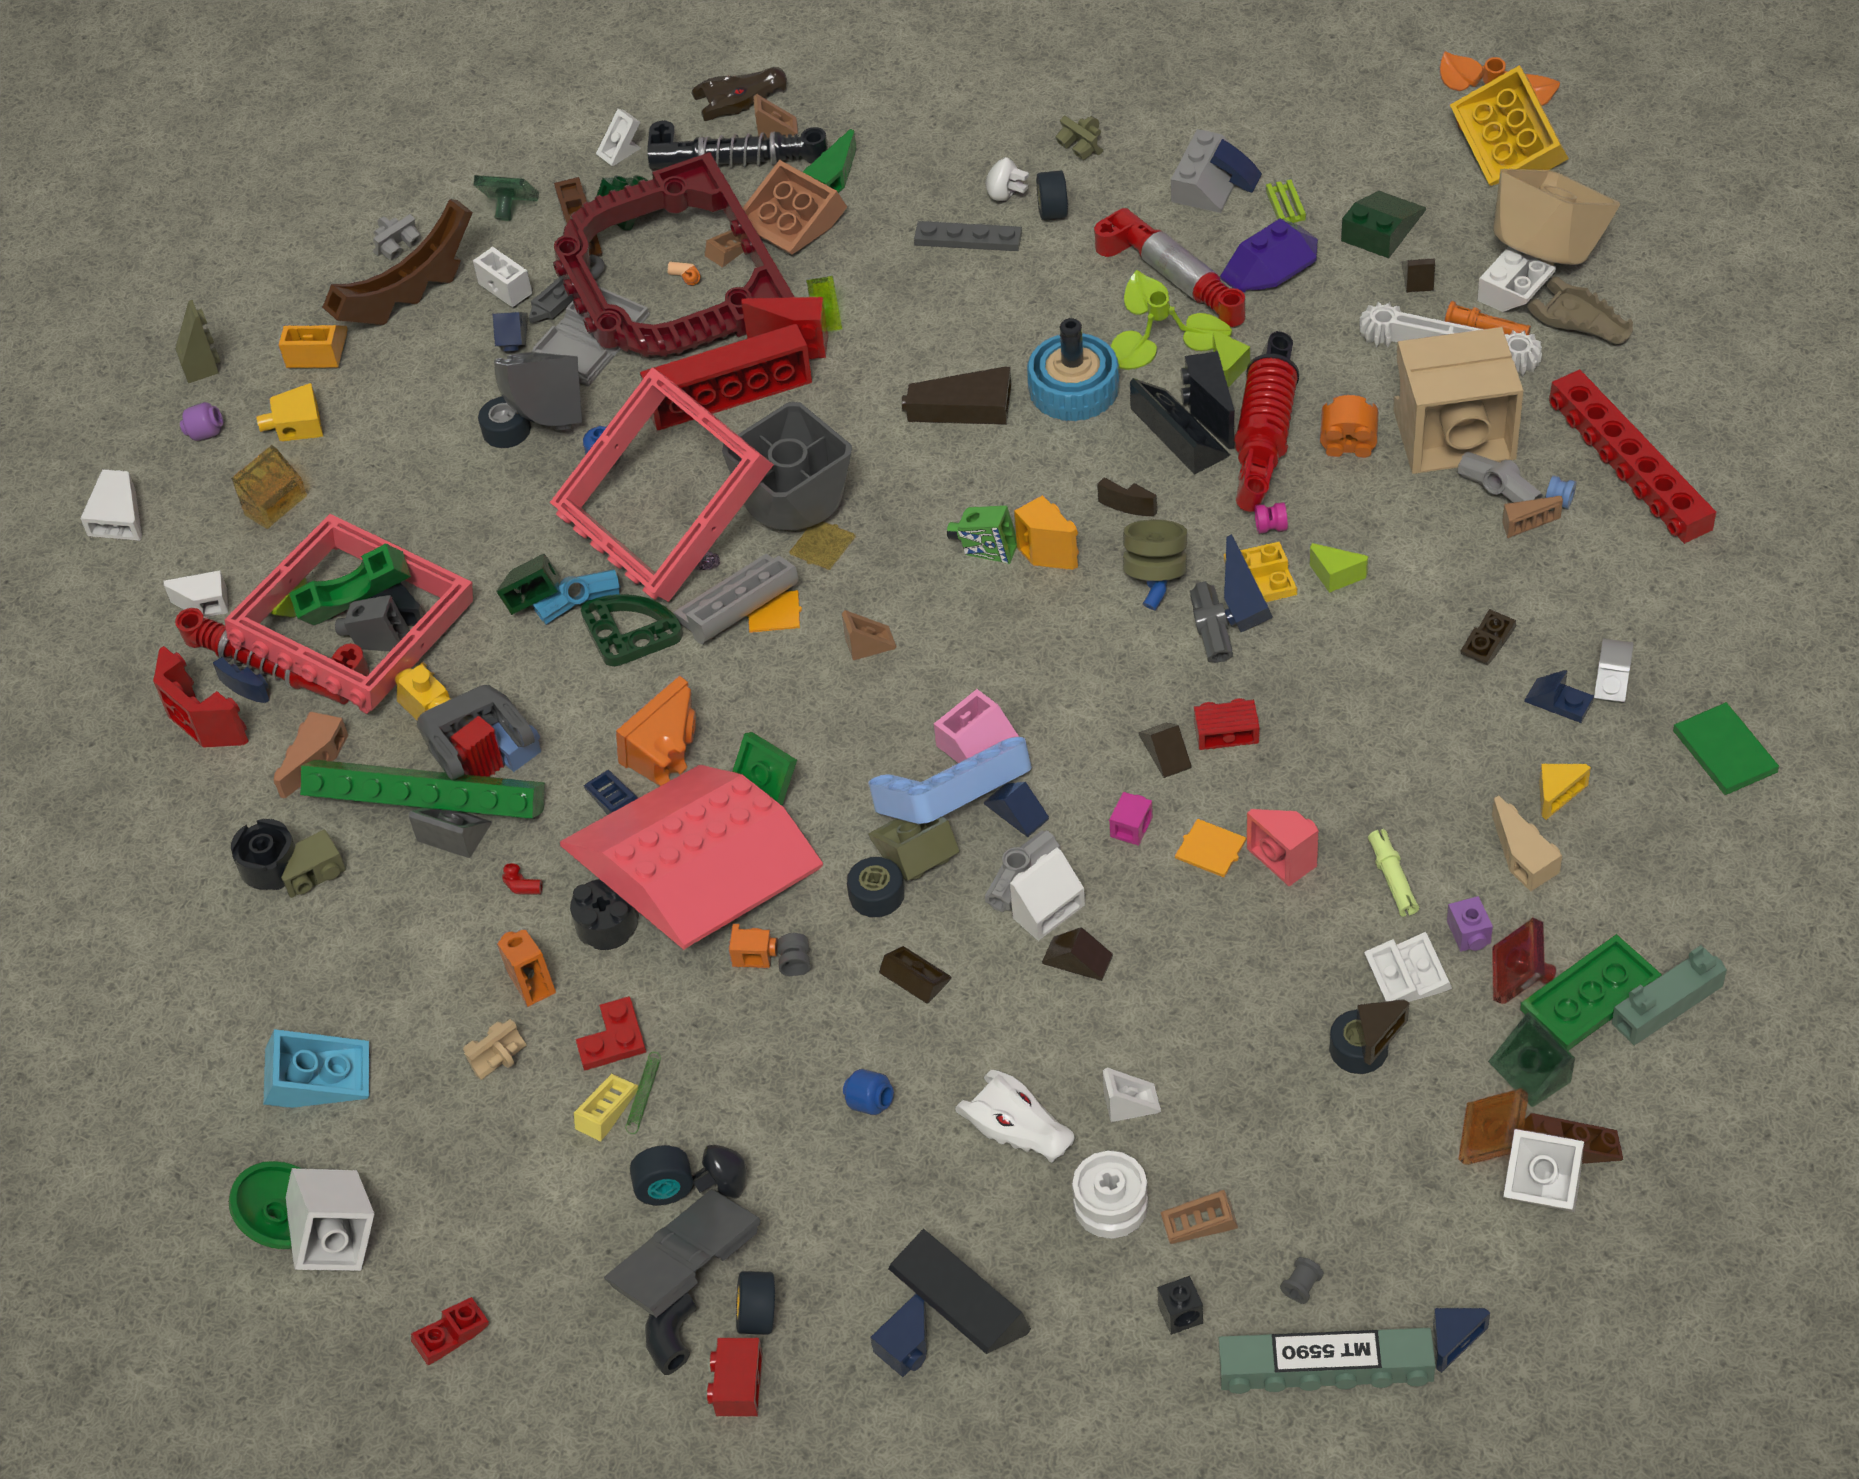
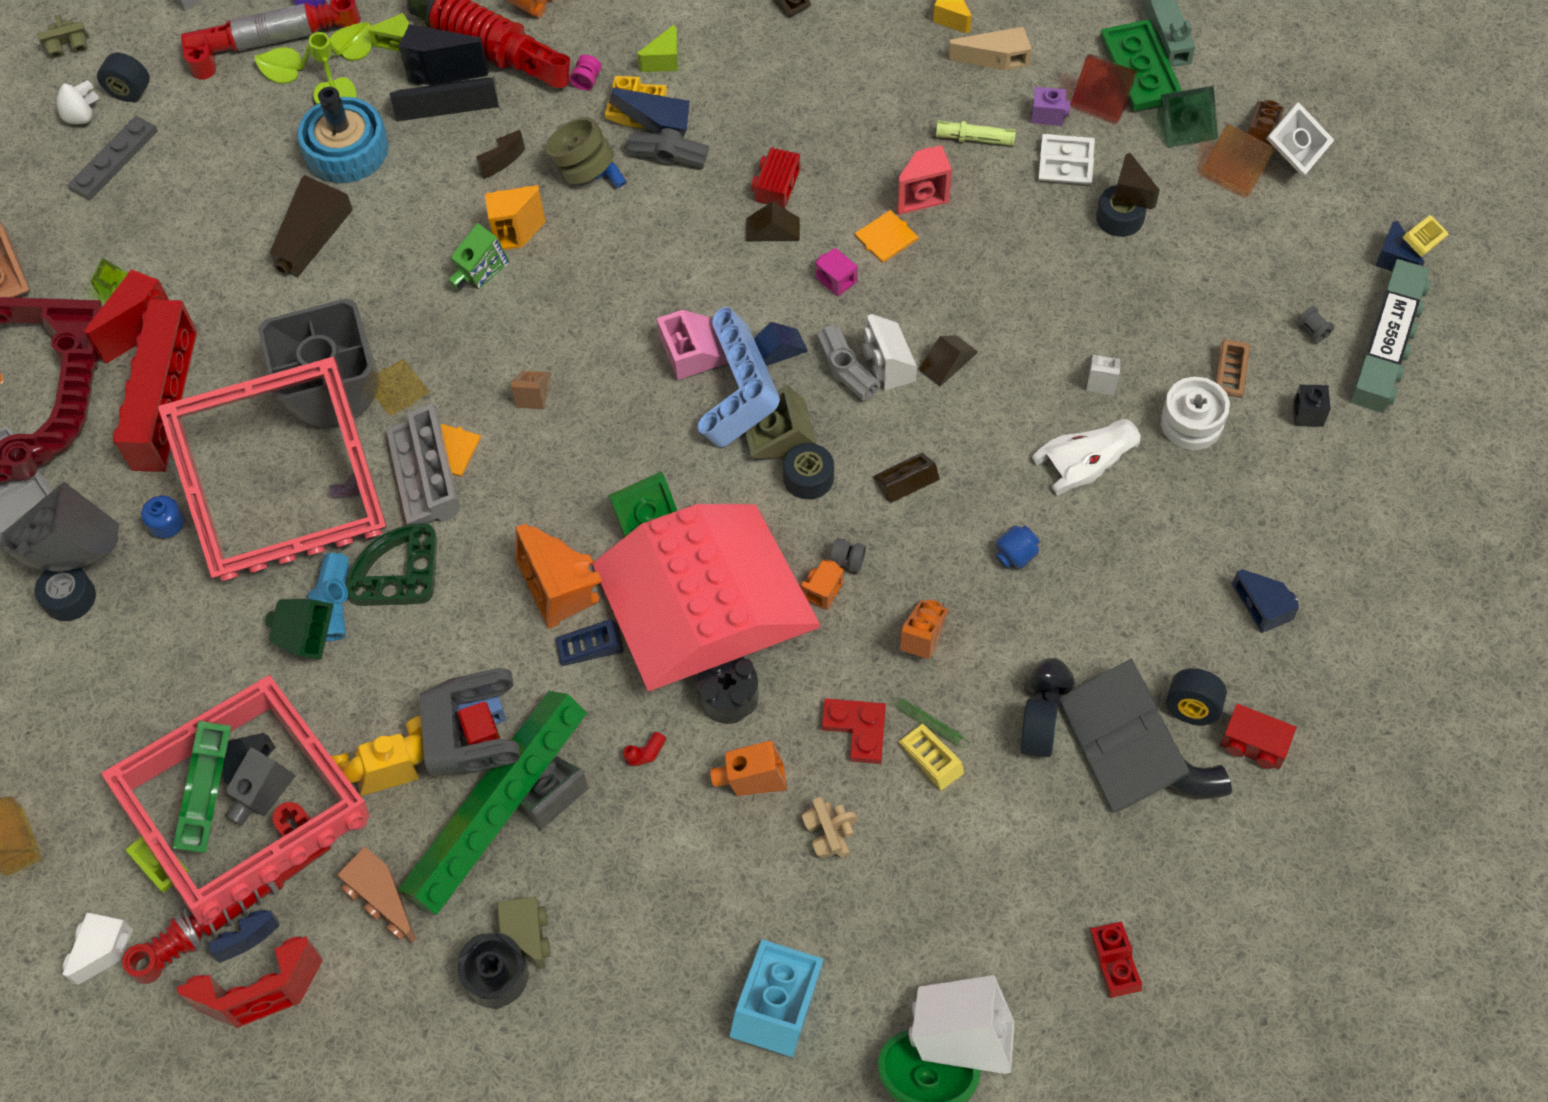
camera: 70 degrees left, 10 degrees up
(733, 1043) = (923, 628): none -> orange slope
(959, 1293) = (1249, 544): black slope -> none
(1509, 1349) = (1425, 235): none -> light yellow slope

